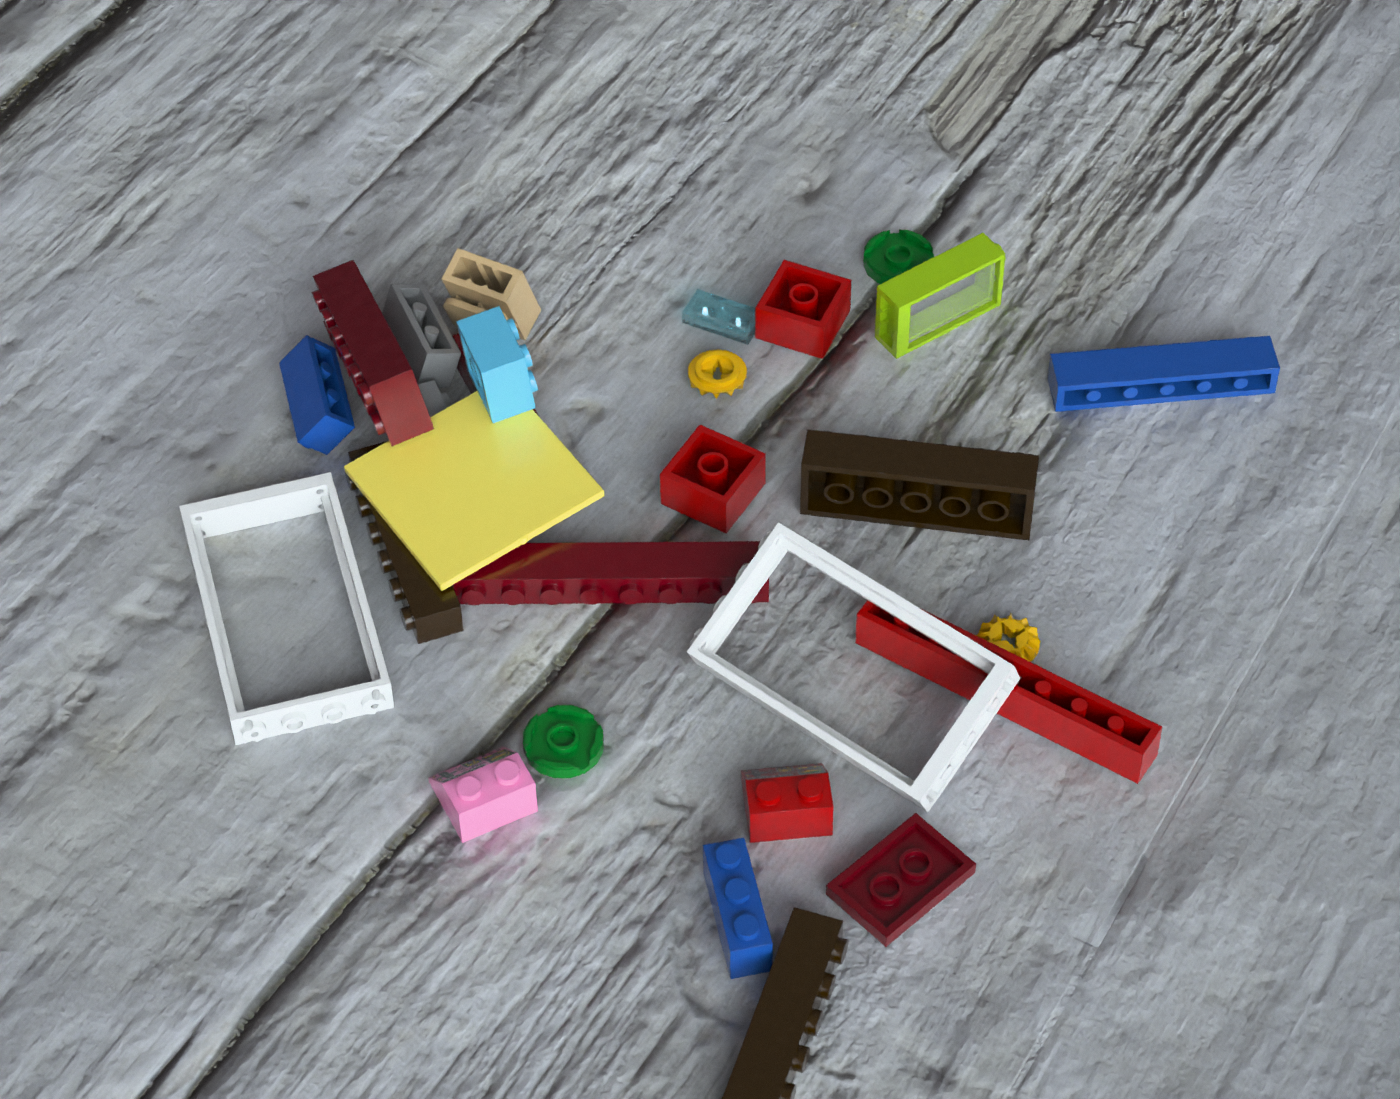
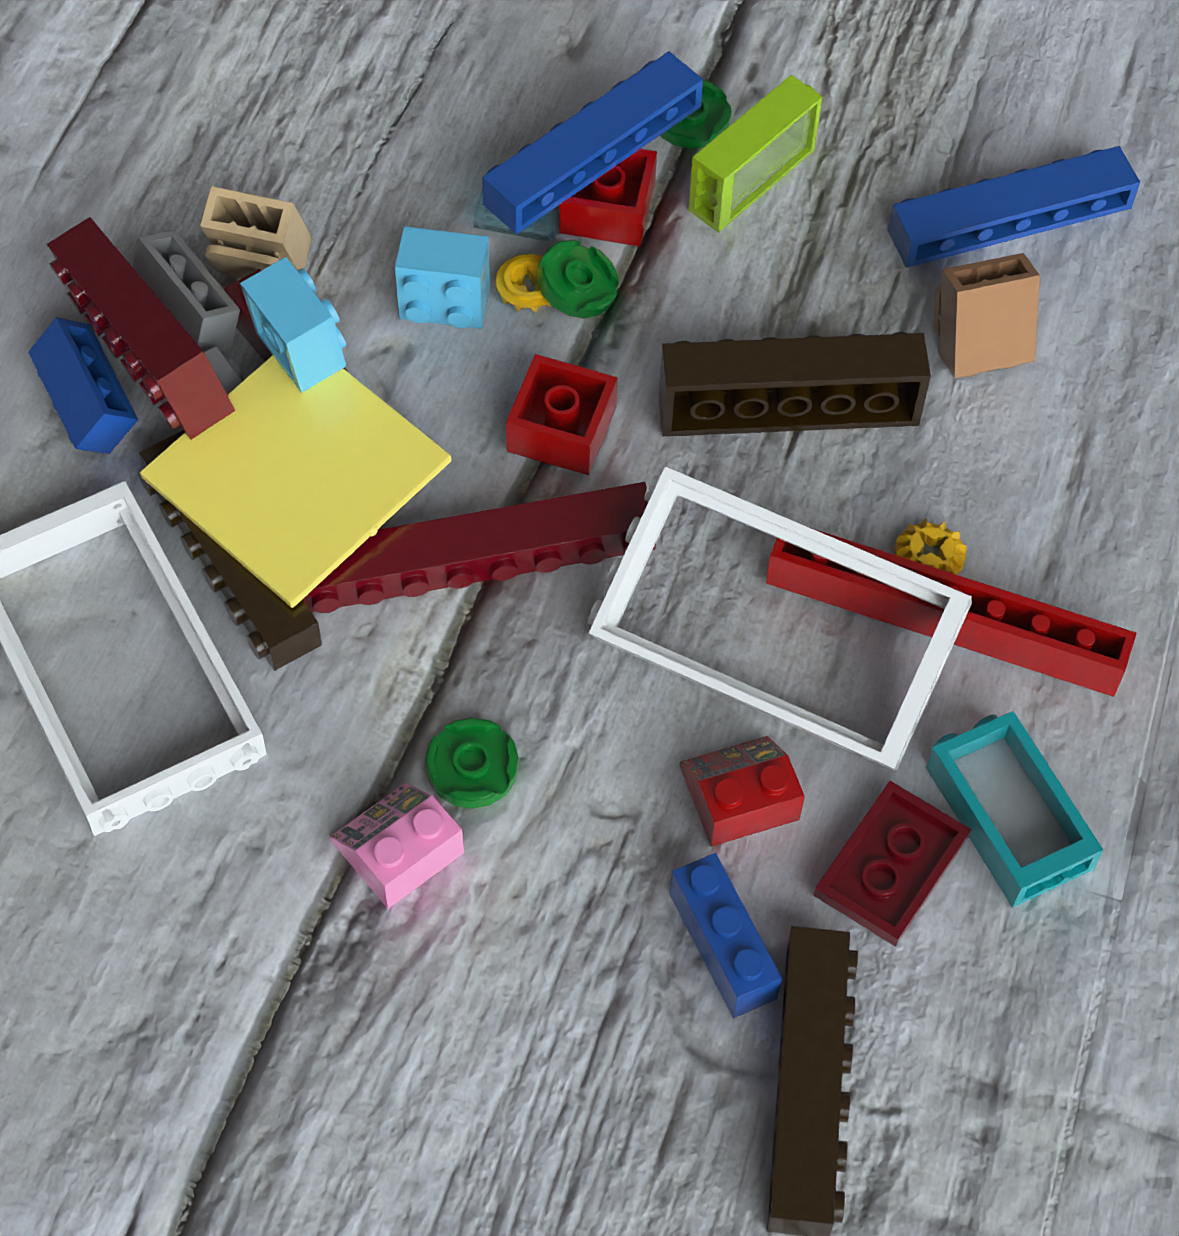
camera: 15 degrees left, 10 degrees up
(640, 355) = (443, 277): none -> medium azure brick
(758, 375) = (577, 279): none -> green tile
(794, 262) = (591, 142): none -> blue brick
(1019, 854) = (1014, 806): none -> teal window
(1106, 454) = (987, 315): none -> medium nougat brick

